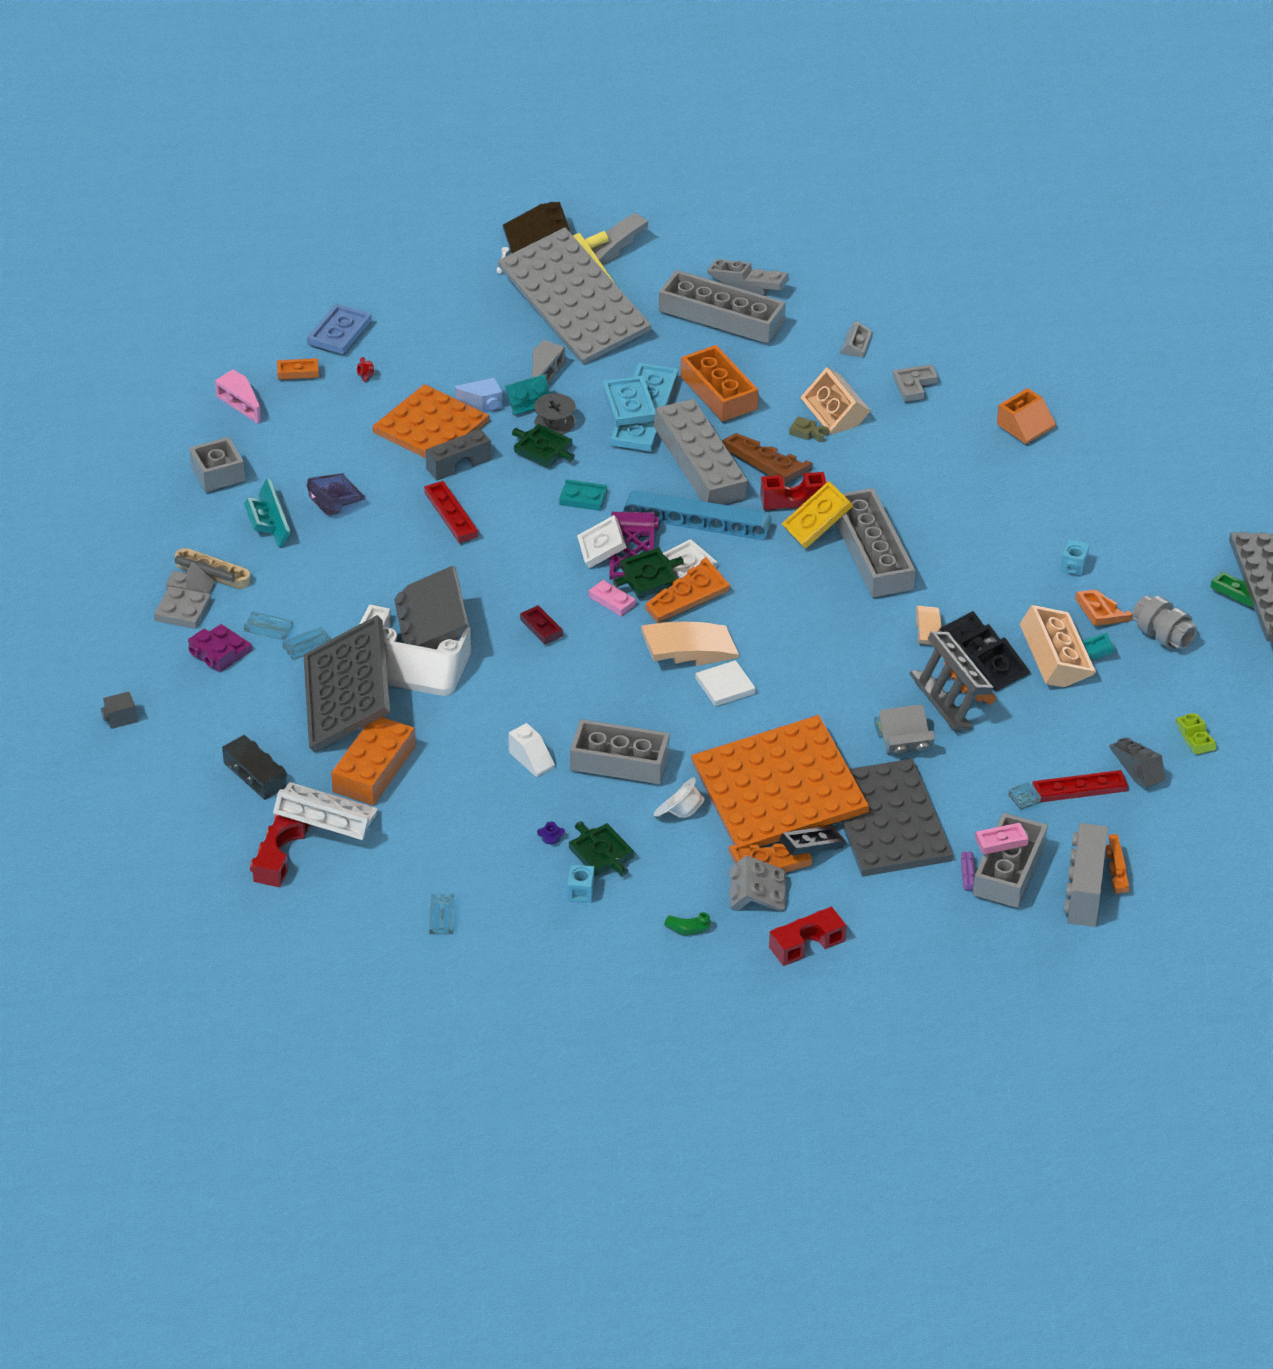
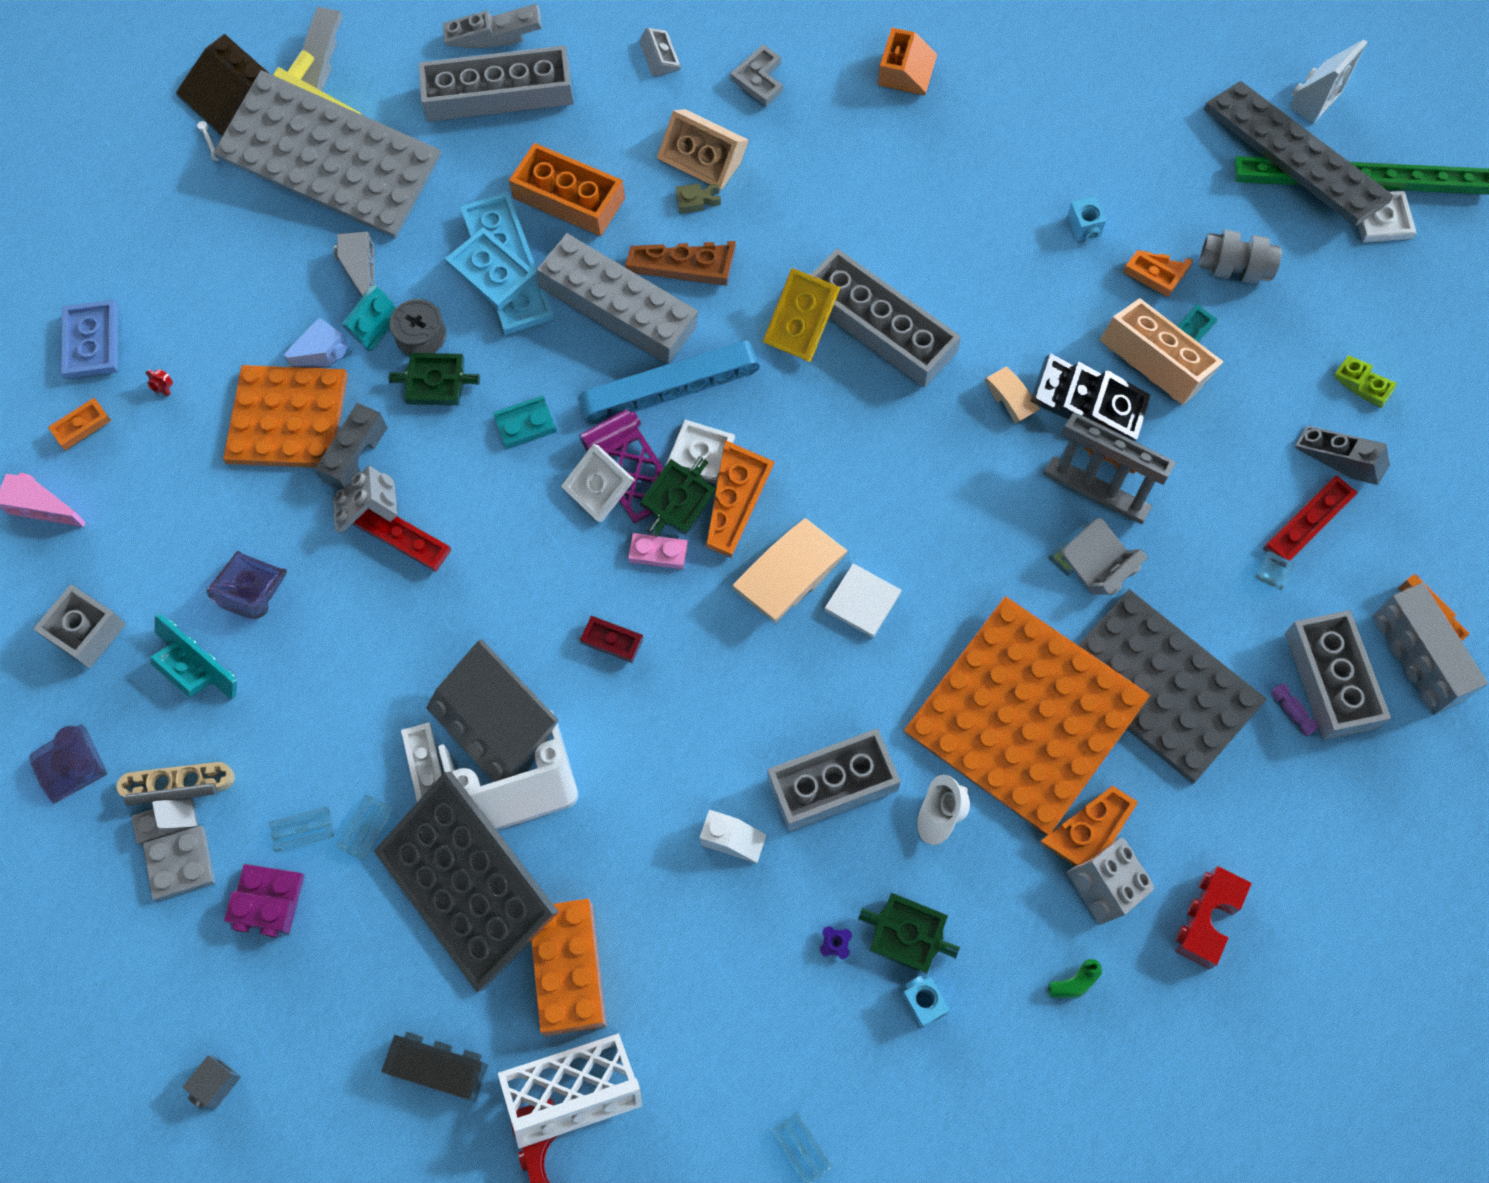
camera: 30 degrees left, 25 degrees up
(156, 529) = (67, 763): none -> clear purple slope
(454, 479) = (365, 491): none -> light grey bracket
(777, 495) = (765, 284): red arch -> none
(812, 840) = (1126, 780): black plate -> none
(1001, 838) = (1331, 665): bright pink plate -> none

